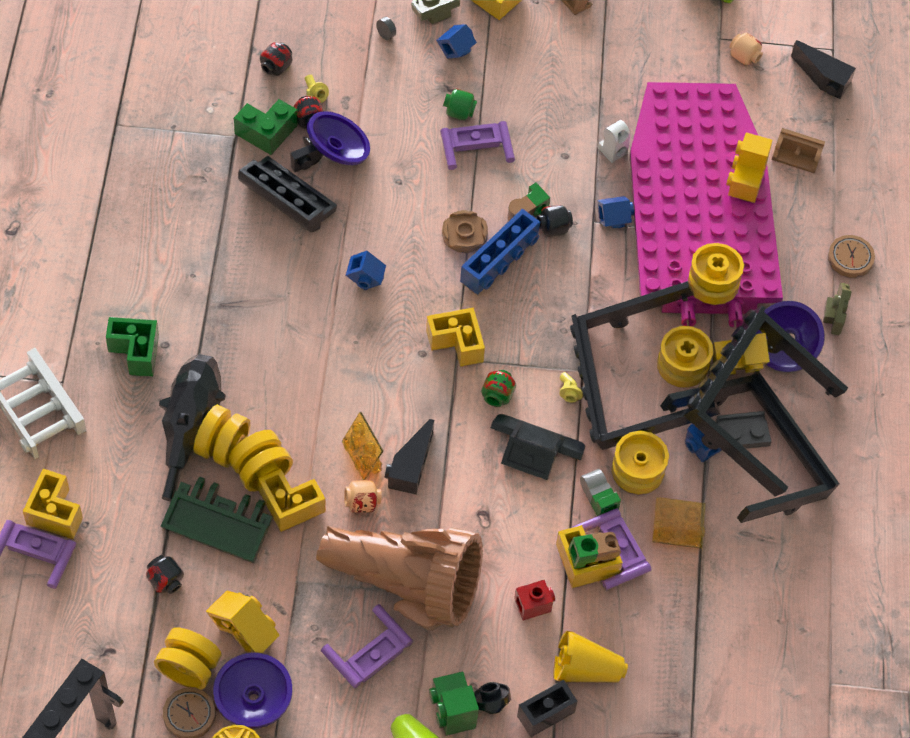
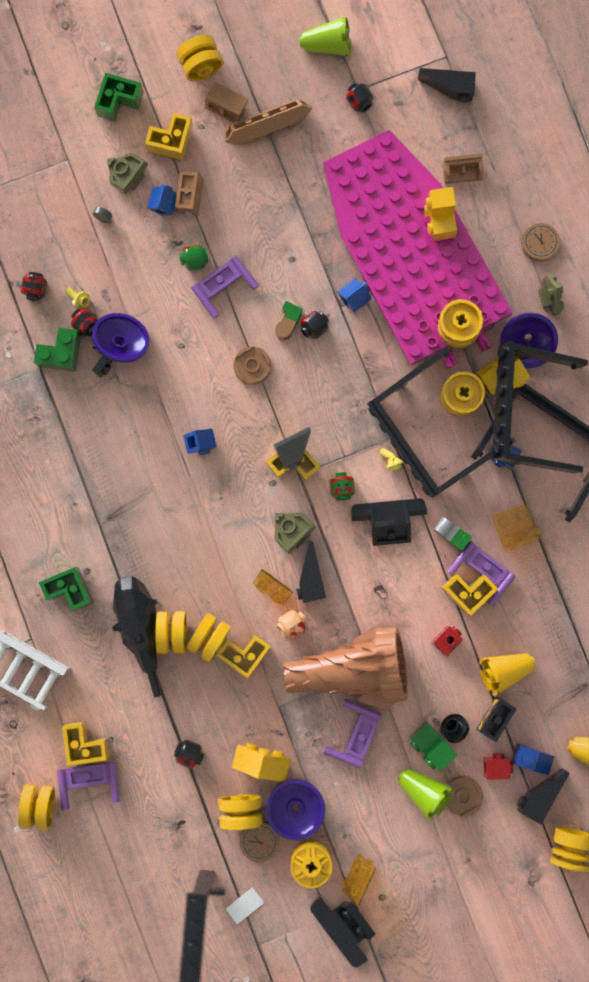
camera: 25 degrees left, 25 degrees up
(214, 521) = (201, 695): dark green hinge -> none
(287, 192) = (107, 402): black brick -> none
(417, 405) = (292, 530): none -> olive plate
(465, 305) = (292, 449): none -> dark grey slope
(489, 47) = (189, 192): none -> medium nougat hinge
(500, 251) = (288, 375): blue brick -> none
(593, 548) = (476, 593): leg -> none
(616, 137) = (326, 232): white leg -> none
(636, 25) = (271, 120): none -> medium nougat brick
(640, 462) = (477, 489): yellow wheel -> none
(718, 42) = (359, 97): none -> black head
(746, 49) = (383, 92): light nougat head -> none
(747, 428) = (529, 429): dark grey plate -> none

